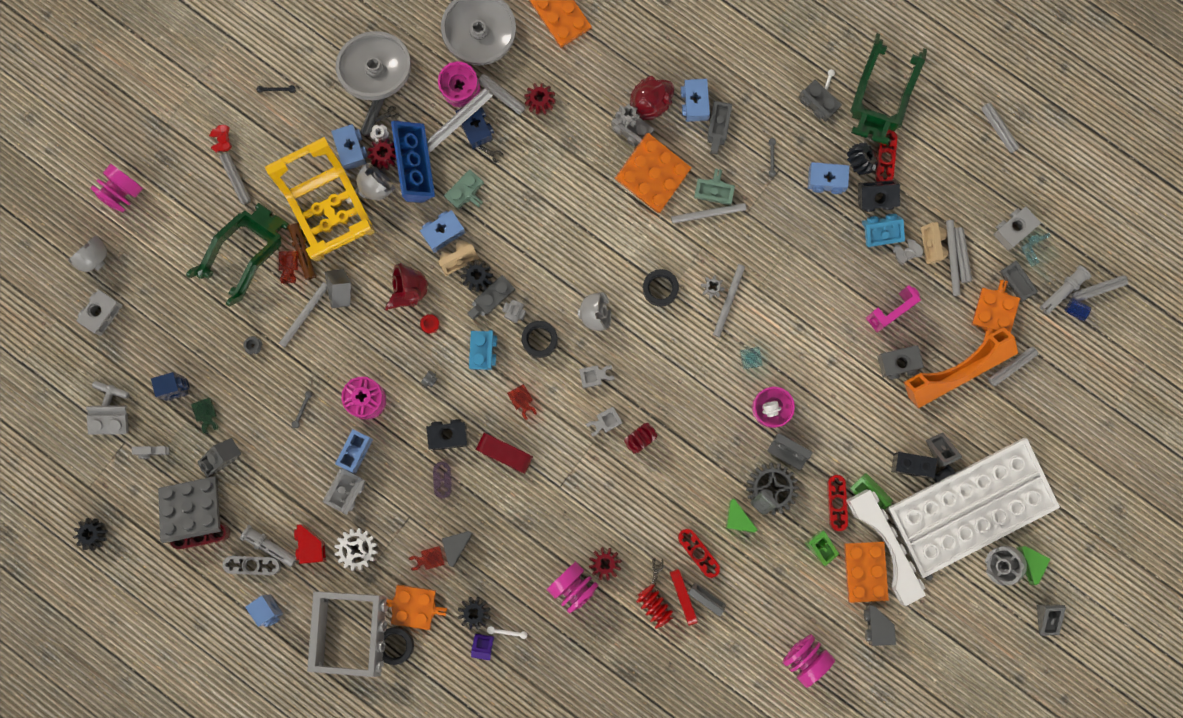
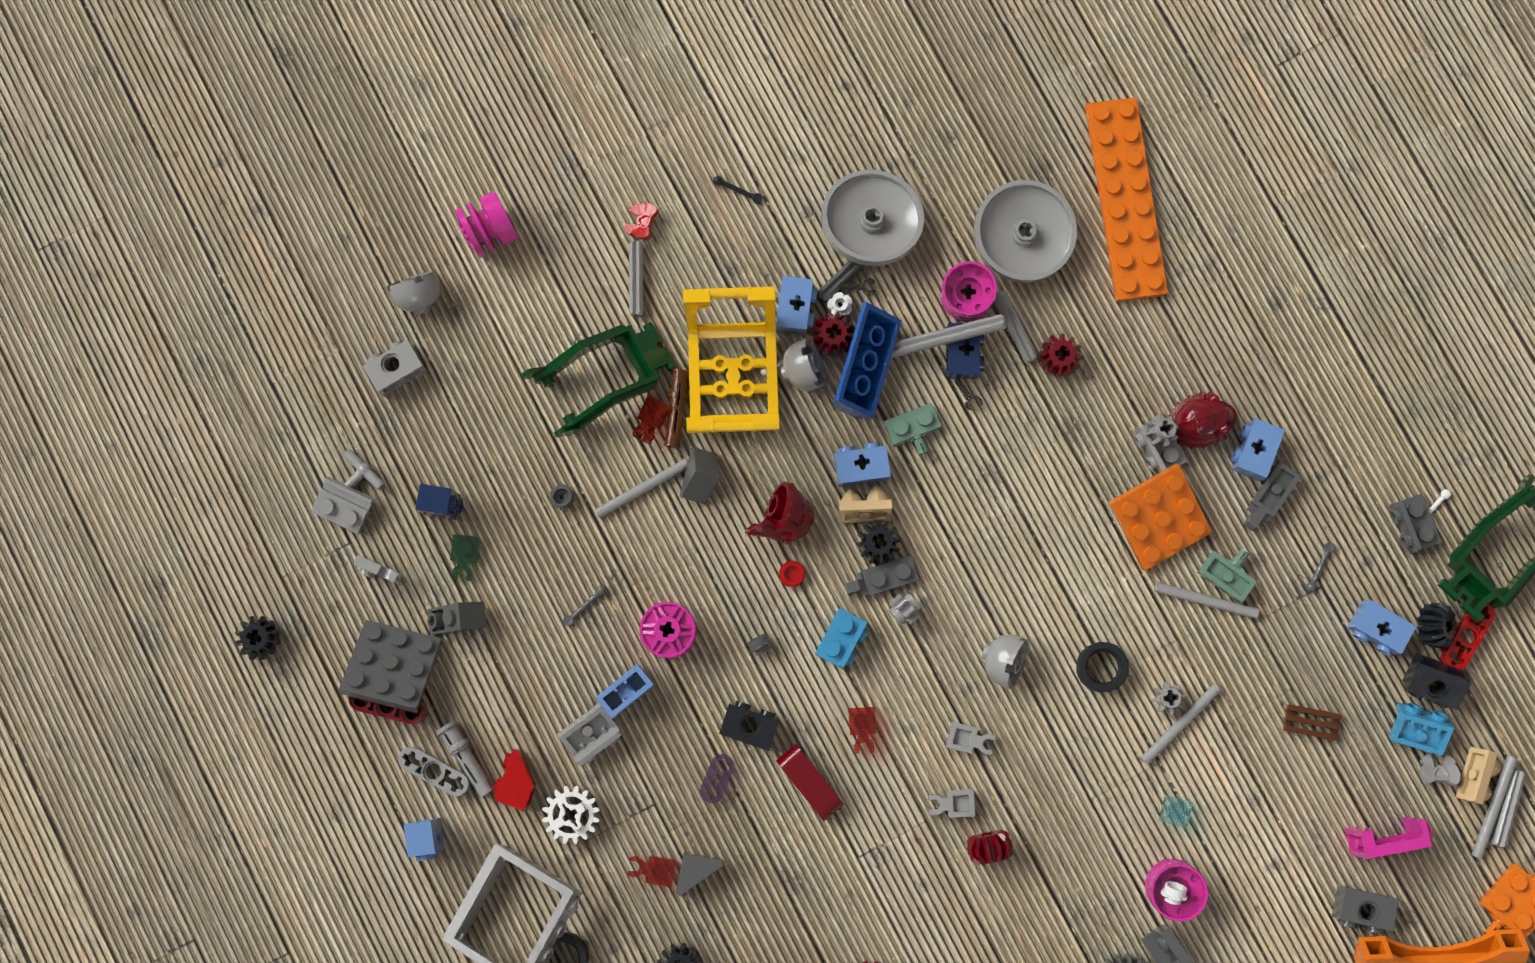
camera: 25 degrees right, 0 degrees up
(414, 607) = (609, 921): orange plate -> none
(539, 353) = (939, 664): black tyre -> none
(828, 255) = (1334, 726): none -> reddish brown tile

